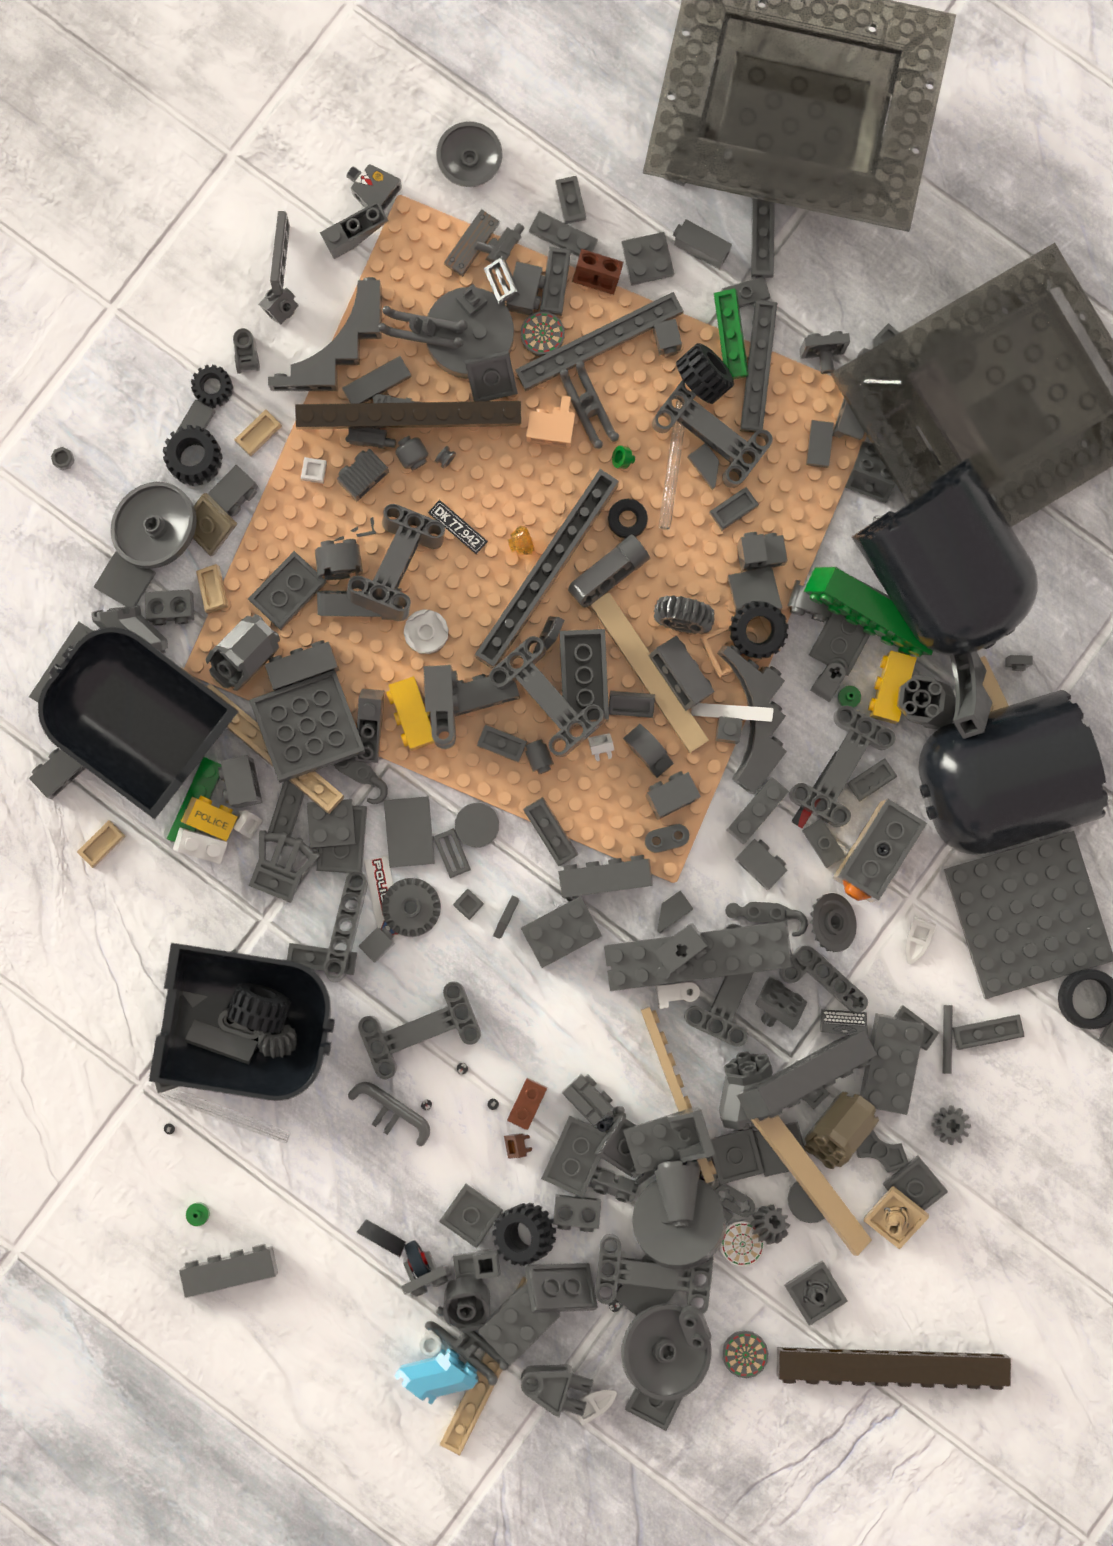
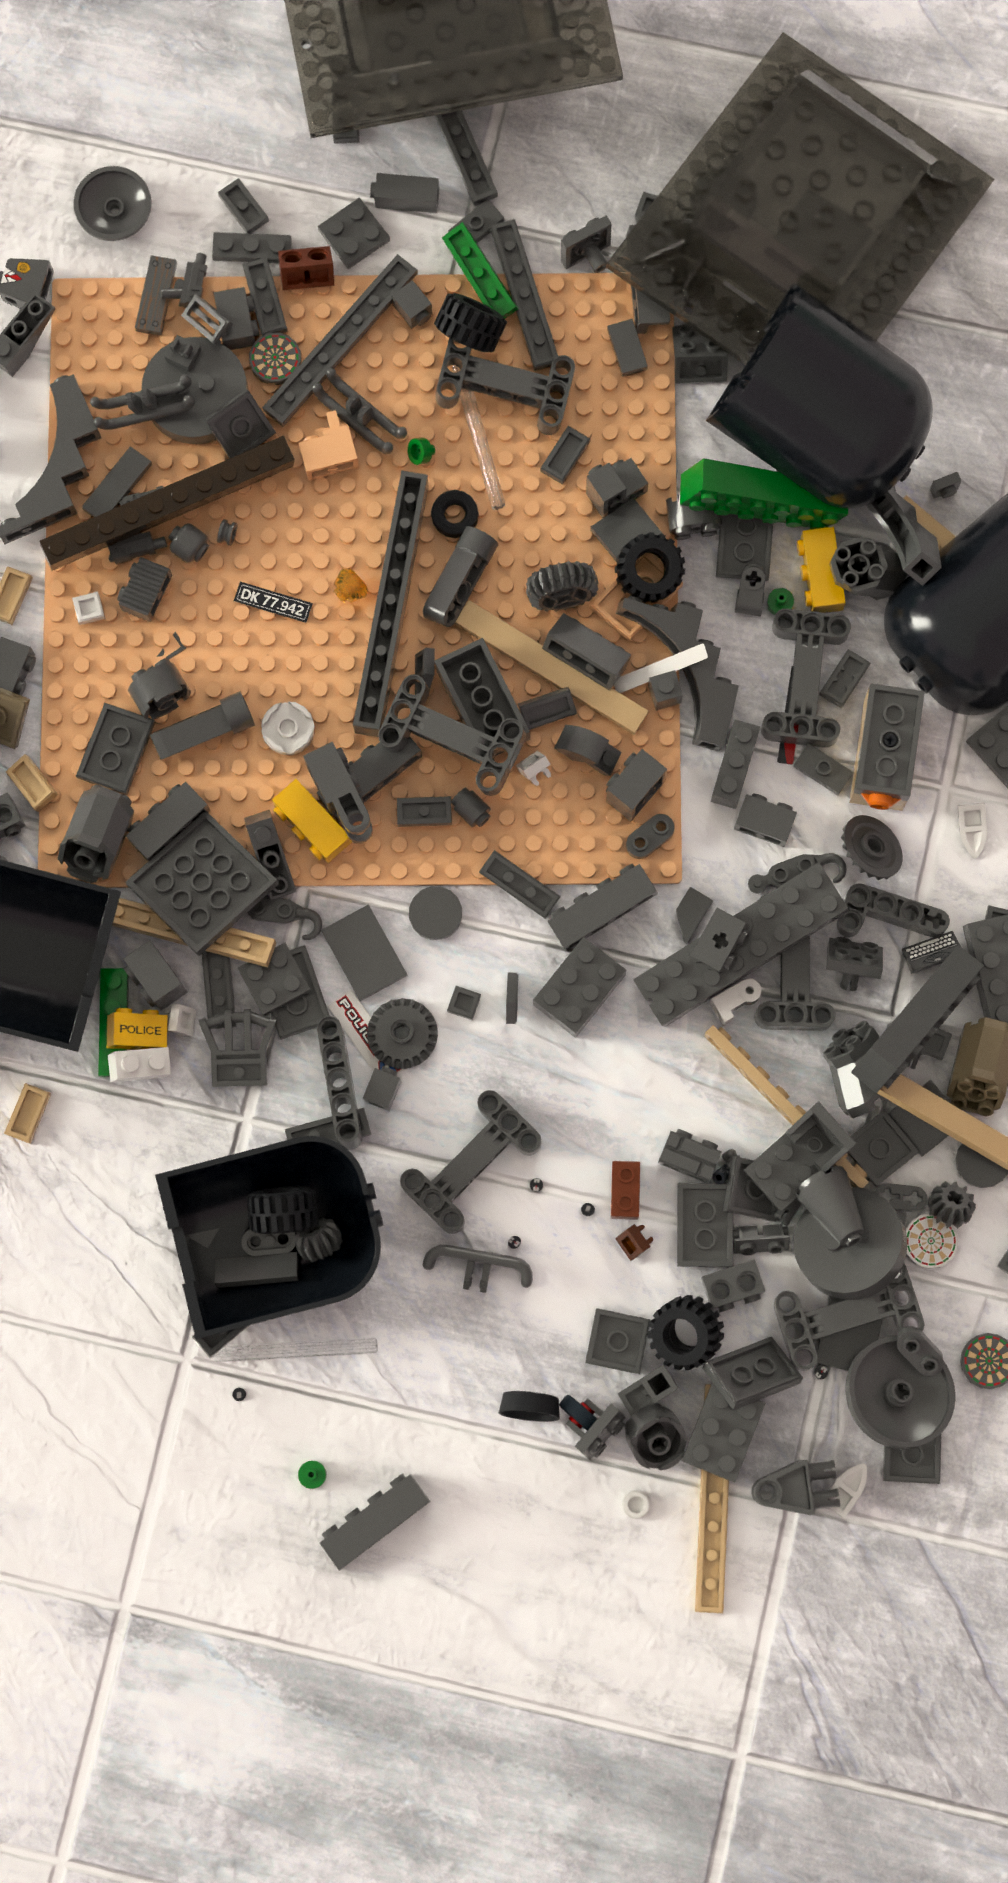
camera: 15 degrees left, 5 degrees down
(395, 562) = (223, 626): dark grey beam -> none
(438, 1376) = (660, 1531): medium azure brick -> none
(445, 835) = (405, 940): dark grey tile -> none
(467, 1346) = (677, 1485): dark grey piece -> none
(706, 464) = (513, 420): dark grey tile -> none

